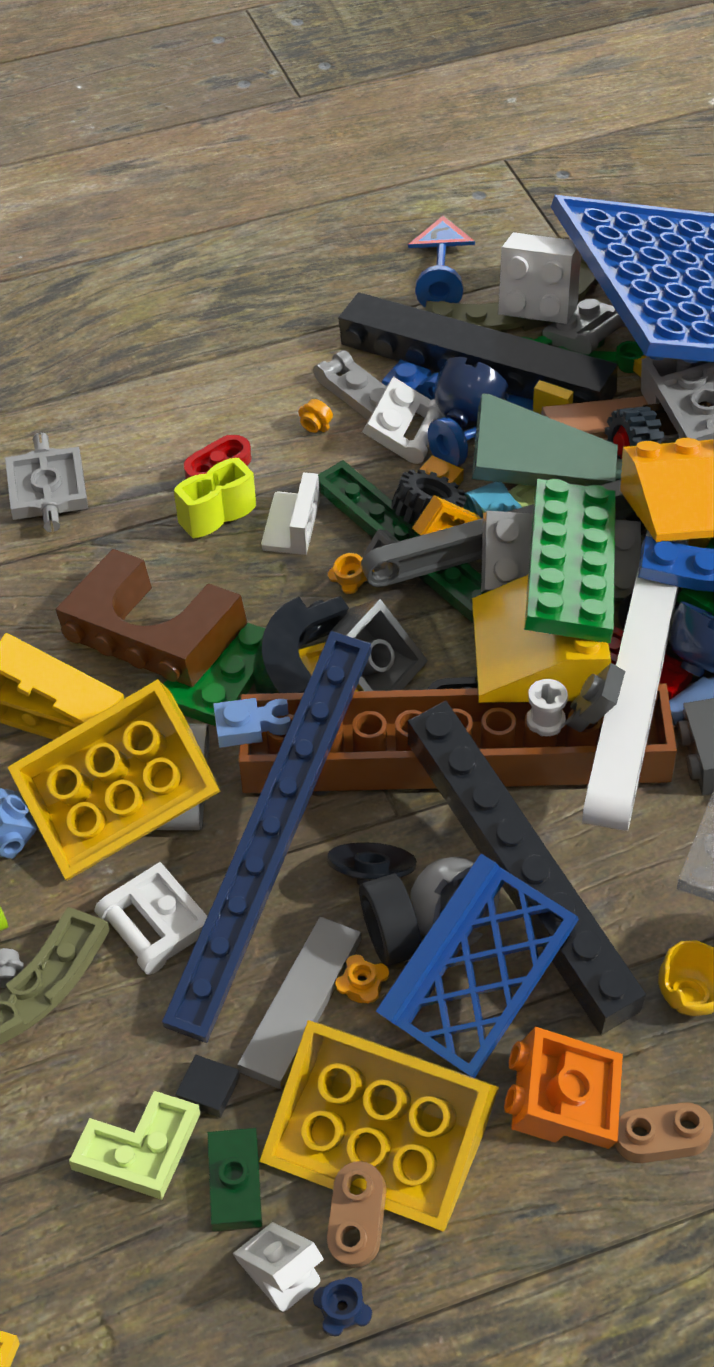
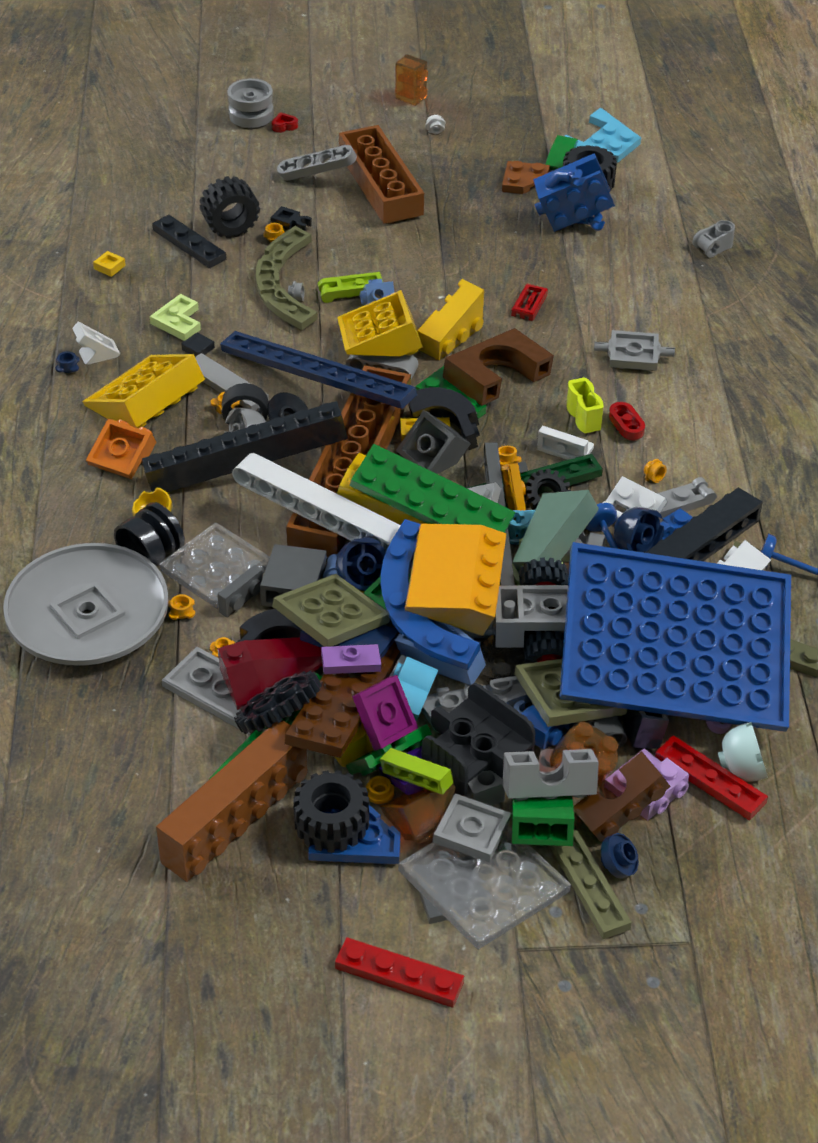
camera: 105 degrees right, 5 degrees down
(165, 908) = (305, 339): white plate -> none
(234, 1179) = (145, 344): dark green plate -> none
(242, 721) = (387, 365): medium blue plate -> none
(356, 1212) = (103, 372): medium nougat plate -> none
(443, 943) = (198, 419): blue fence -> none
(547, 701) = (336, 472): white bush -> none
(596, 697) = (320, 476): dark grey plate -> none
(666, 1135) = (83, 483): medium nougat plate -> none

